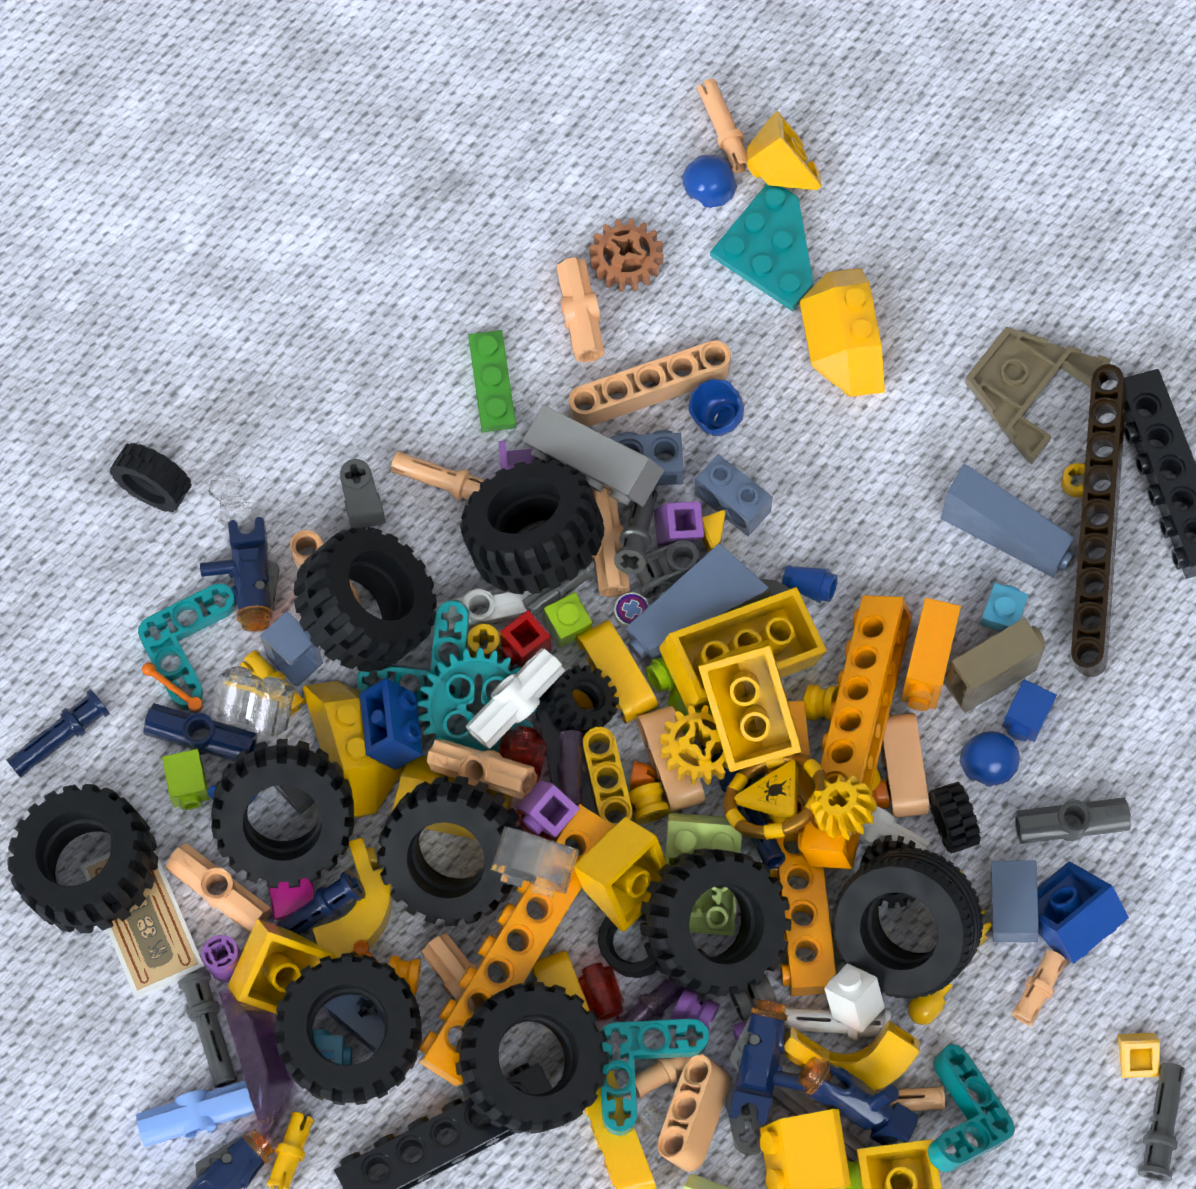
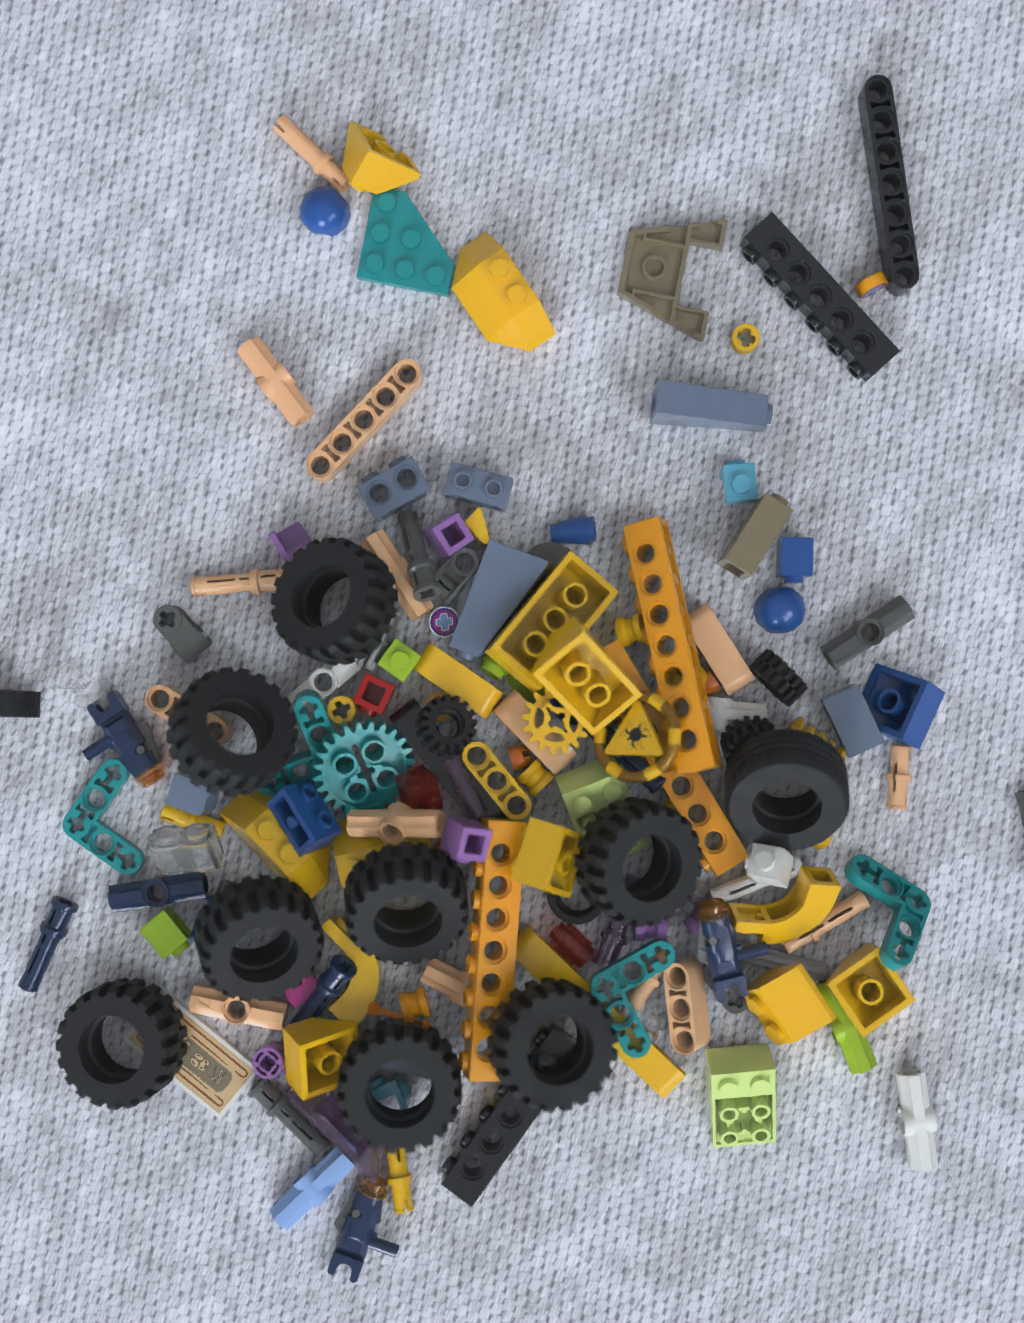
camera: 25 degrees left, 20 degrees up
(194, 703) = (140, 870): orange hinge -> none
(492, 381) = (235, 478): bright green plate -> none
(515, 698) = (393, 754): white piece -> none
(534, 861) = (479, 895): clear brick -> none
(594, 455) = (352, 514): light grey brick -> none
(629, 261) = (302, 315): nougat gear -> none
(713, 398) = (418, 415): blue hair -> none
(843, 807) = (698, 745): yellow gear -> none
(858, 1102) = (809, 947): dark blue piece -> none
(930, 654) = (700, 552): light orange brick -> none
(1103, 535) = (782, 352): dark brown beam -> none
(1139, 1055) = (994, 791): yellow slope -> none

